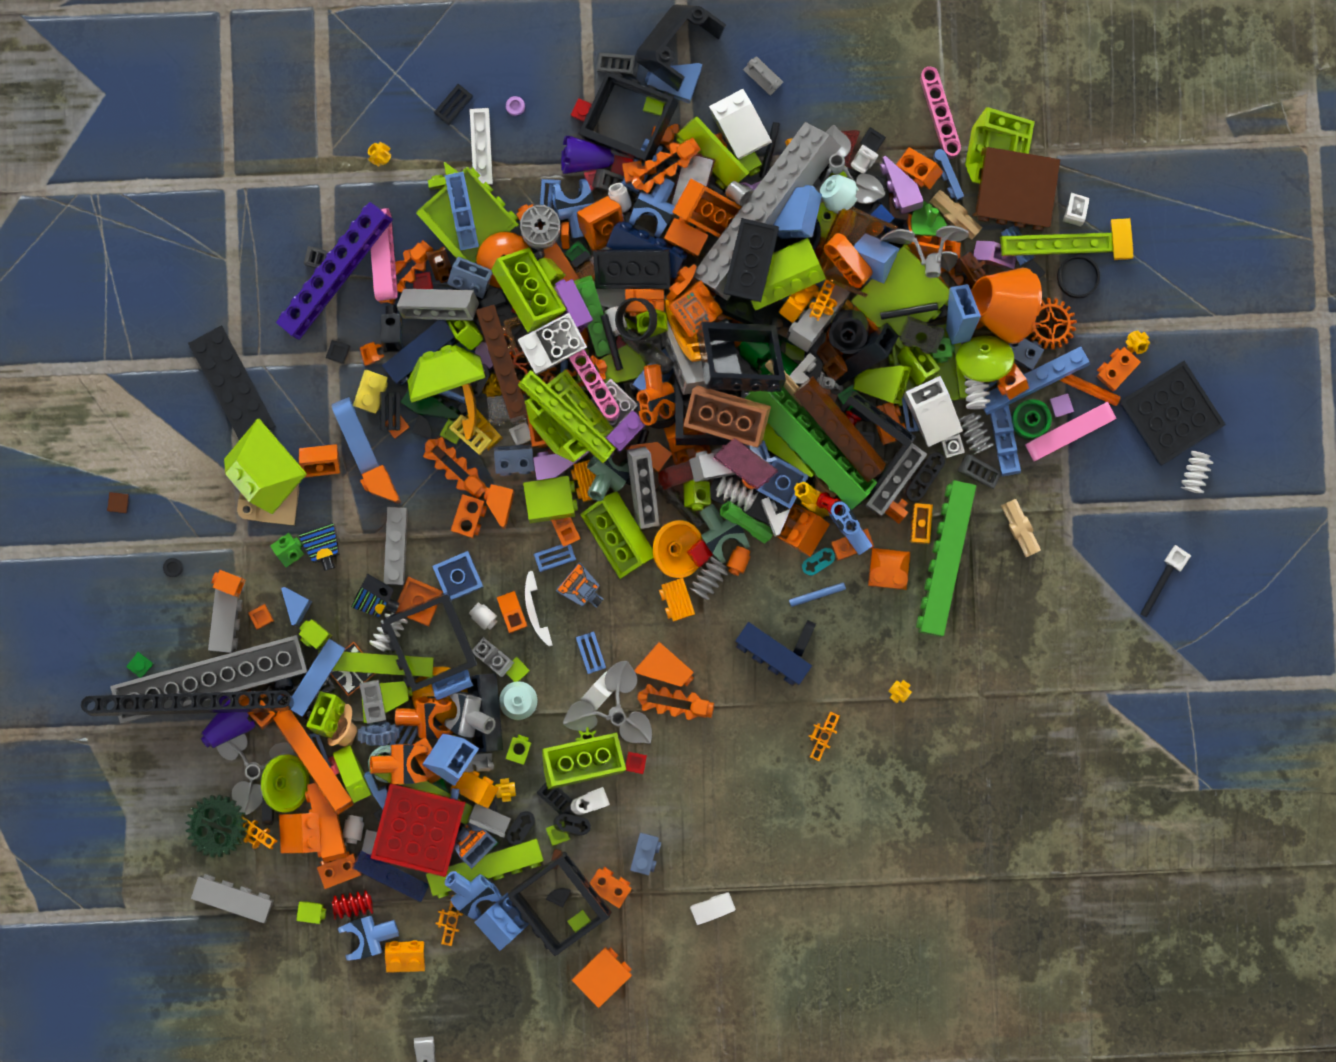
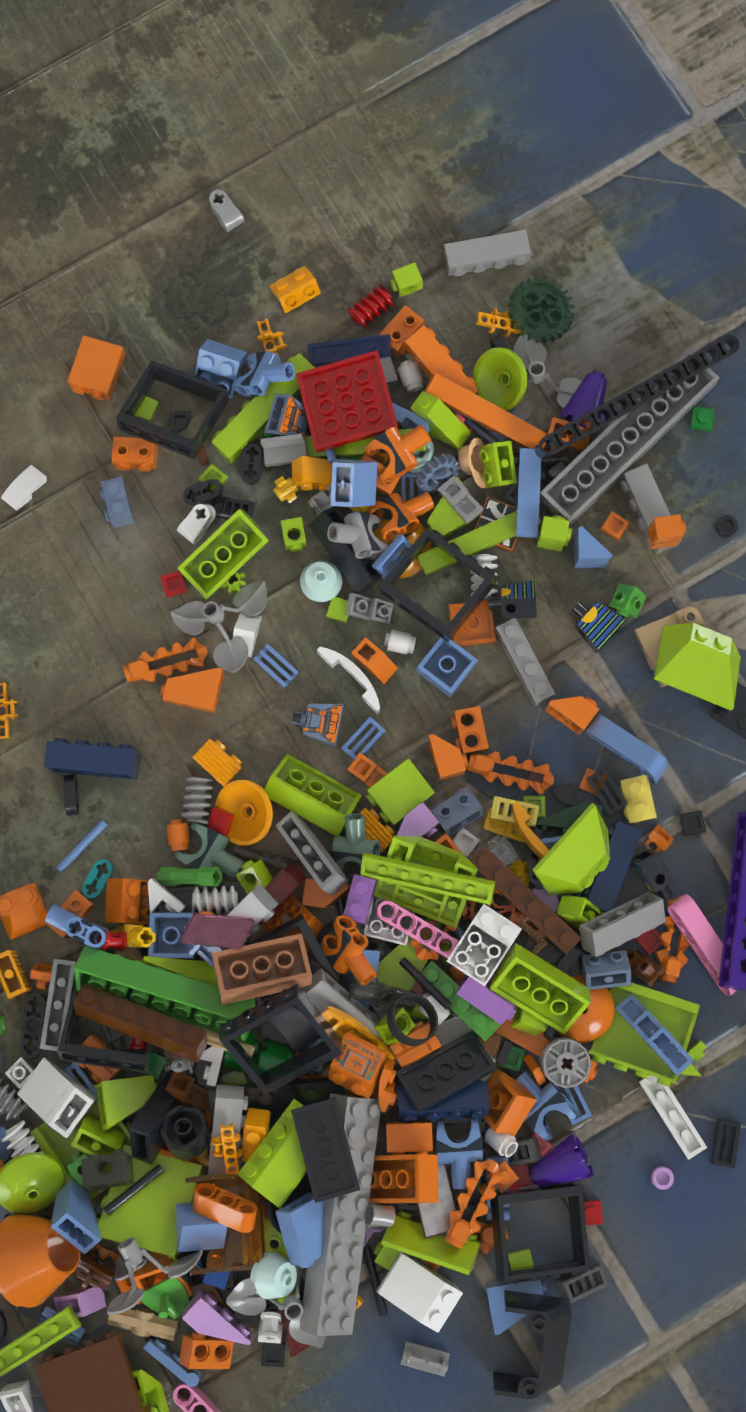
camera: 155 degrees right, 5 degrees down
(299, 833) = (458, 340): orange brick -> none
(320, 460) = (647, 703): orange brick -> none
(369, 935) = (339, 287): medium blue connector -> none

